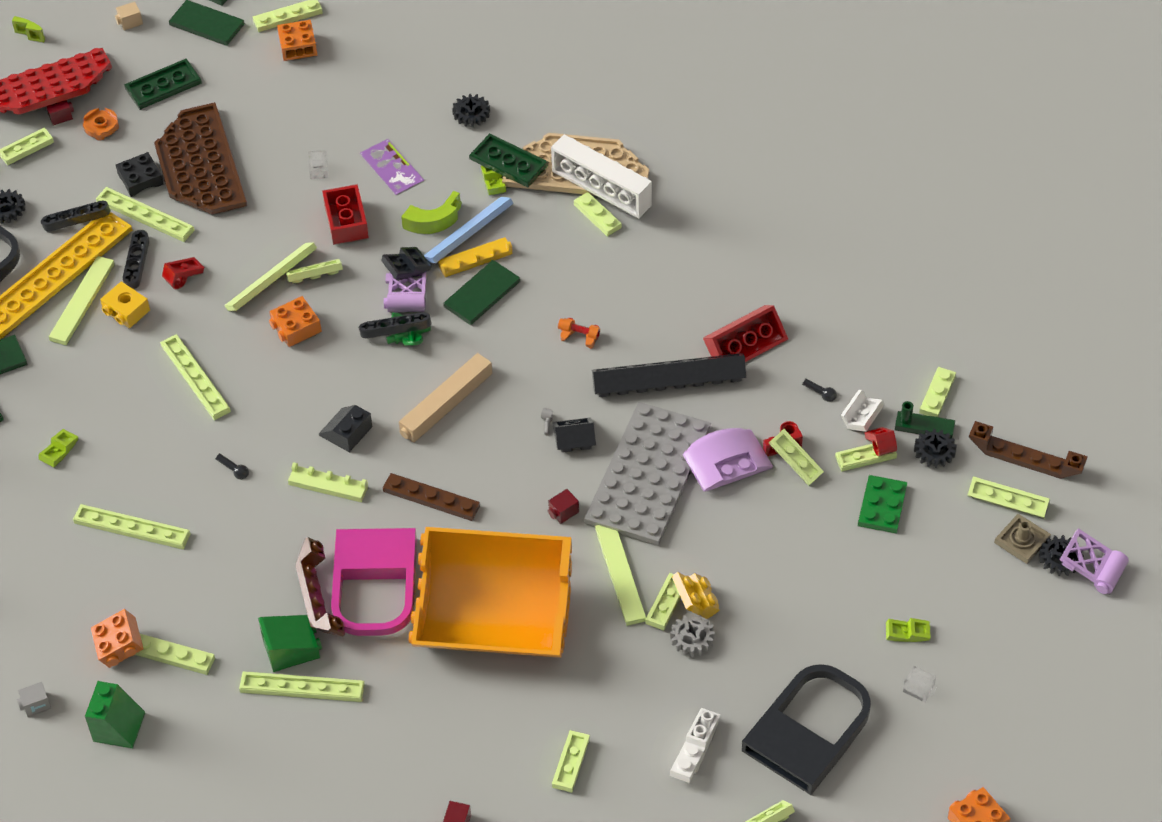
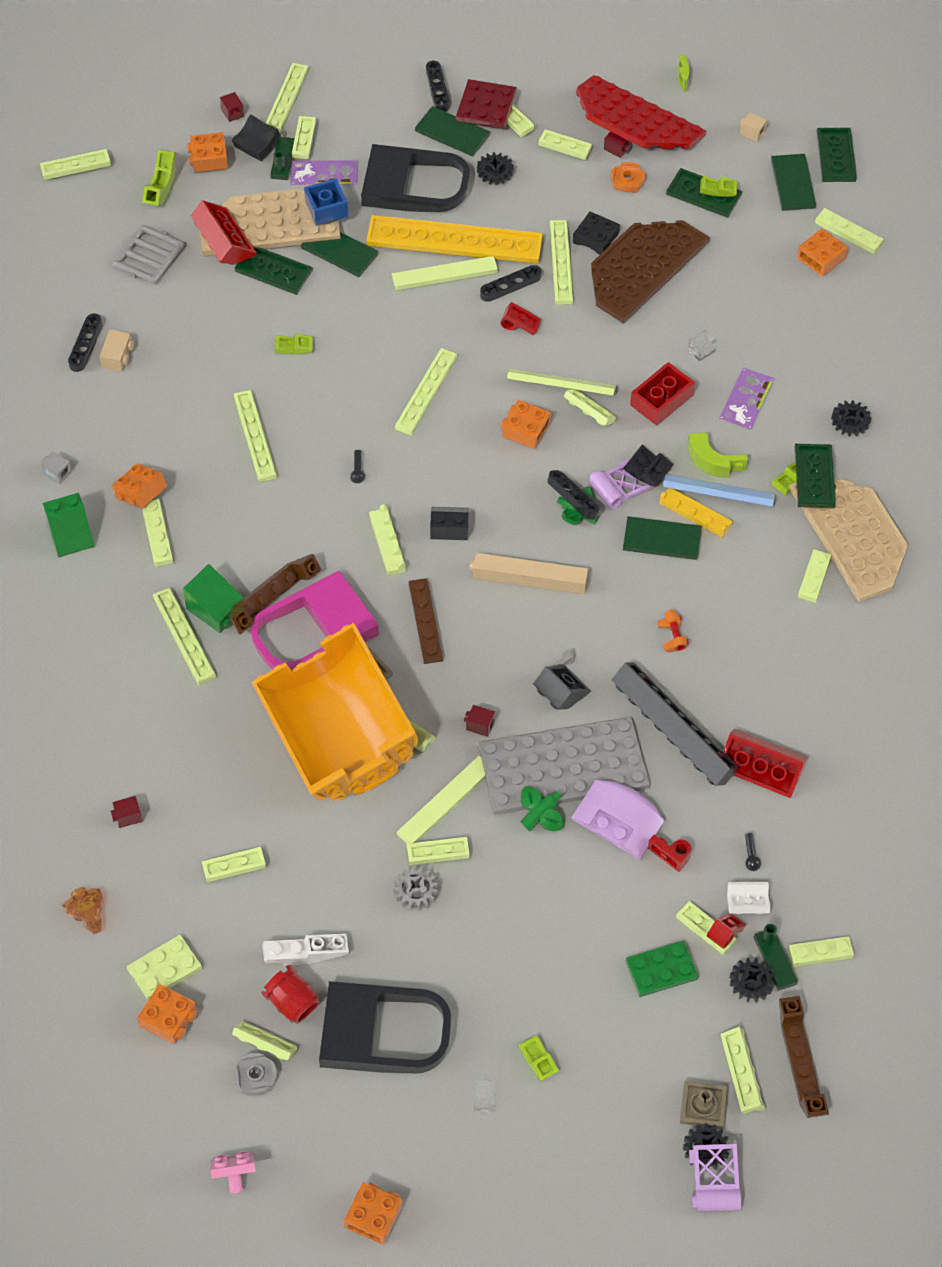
camera: 55 degrees right, 5 degrees up
(74, 215) = (518, 216): black beam -> none
(125, 305) = (455, 302): yellow brick -> none
(172, 67) = (724, 187): none -> lime slope
(601, 176) = (845, 552): white brick -> none
(681, 506) = (541, 810): none -> green plant
(696, 594) = (453, 867): yellow plate -> none
(735, 776) = (291, 995): none -> red piece
(796, 457) = (655, 870): yellowish green plate -> none

